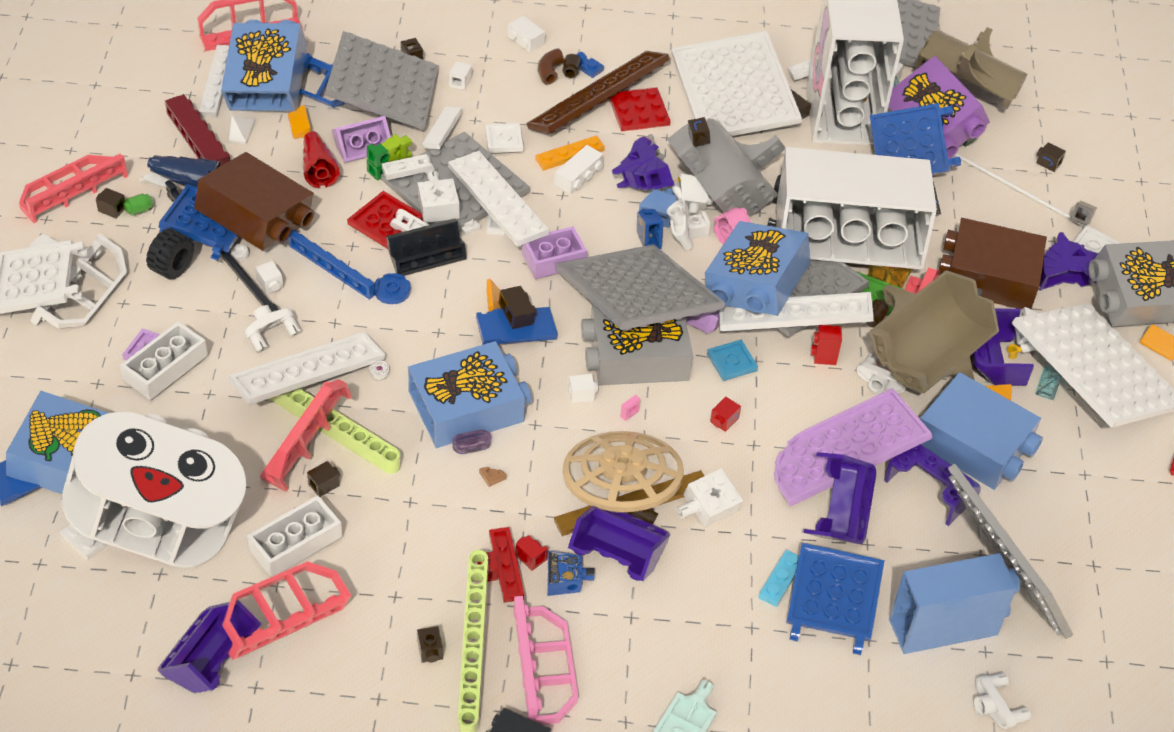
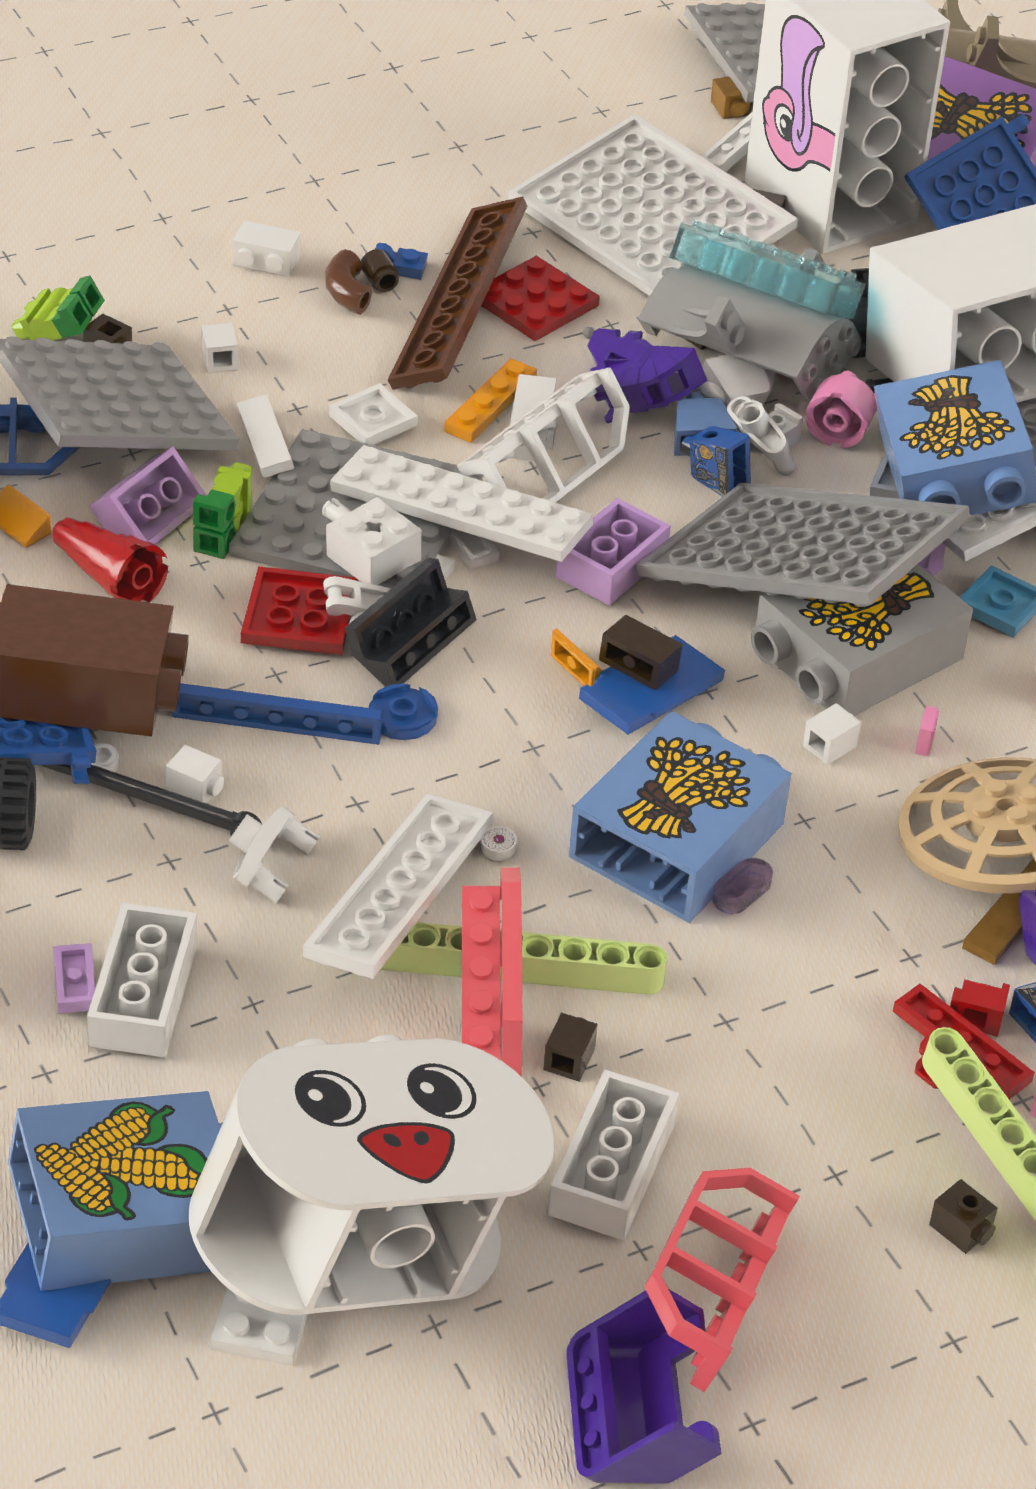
camera: 30 degrees left, 5 degrees down
(397, 29) = (60, 312): none -> hips
(407, 167) = (271, 514): white plate -> none
(492, 476) = (813, 924): medium nougat tile -> none
(572, 171) = (543, 417): none -> white plate
(699, 131) = (698, 282): dark brown brick -> none
(742, 139) = (768, 268): none -> clear light blue brick

